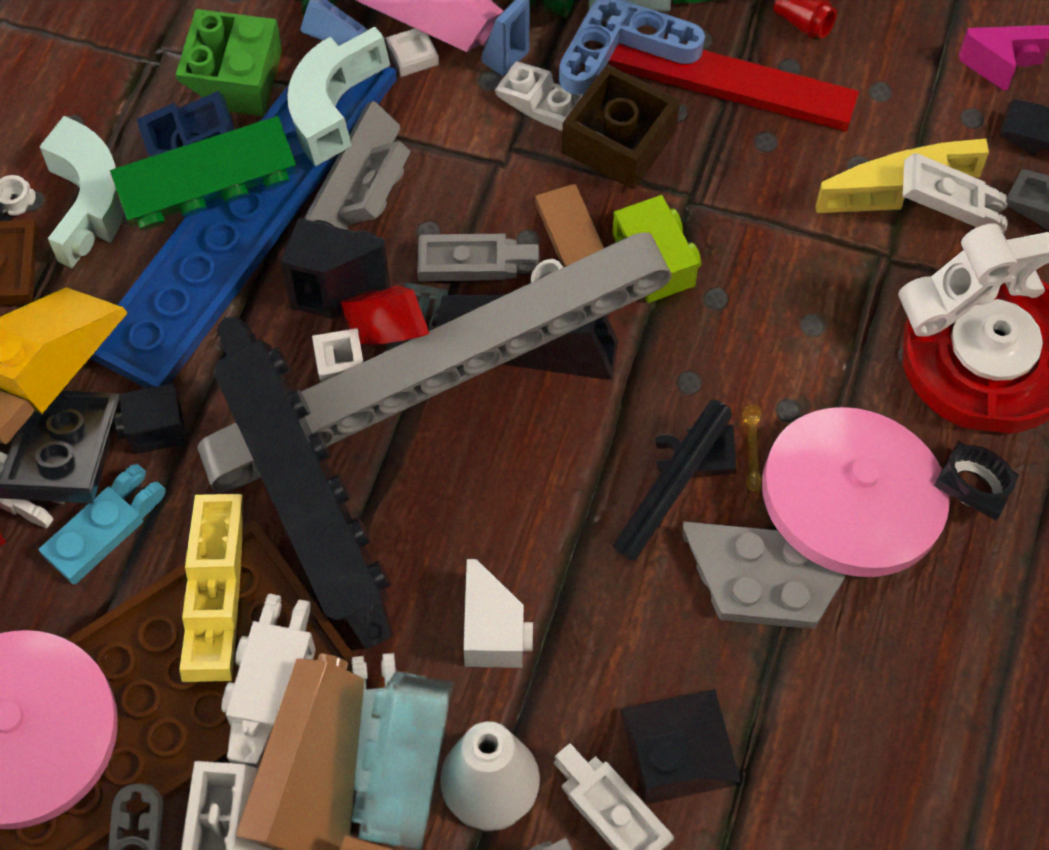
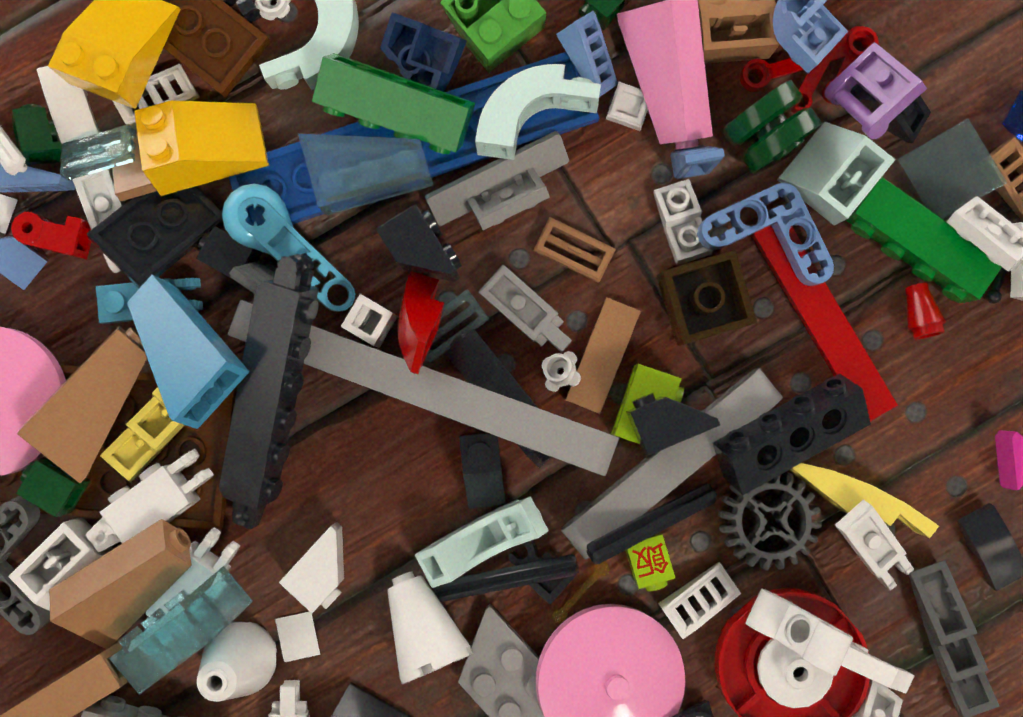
camera: 45 degrees right, 25 degrees up
(127, 641) = (84, 408): none -> medium nougat slope
(151, 745) = (50, 487): none -> dark green brick
(178, 357) = (277, 235): none -> medium azure beam
(192, 494) = (184, 353): none -> dark azure slope
(203, 410) = (253, 274): none -> dark grey slope
(222, 242) = (362, 169): none -> clear light blue wedge
(472, 191) = (581, 237): none -> medium nougat tile
(528, 713) = (297, 636): none -> white sticker
(560, 408) = (482, 469): none -> black slope
(622, 458) = (480, 540): none -> light aqua arch
(644, 584) = (422, 629): none -> white cone
(685, 222) = (666, 422): none -> black slope
(722, 278) = (668, 468): none -> light grey beam
(752, 325) = (651, 523): none -> black axle
(783, 364) = (650, 563): none -> lime brick
(794, 165) = (792, 433): none -> black brick
(855, 394) = (699, 618): none -> white slope
(862, 241) = (780, 510): none -> dark grey gear

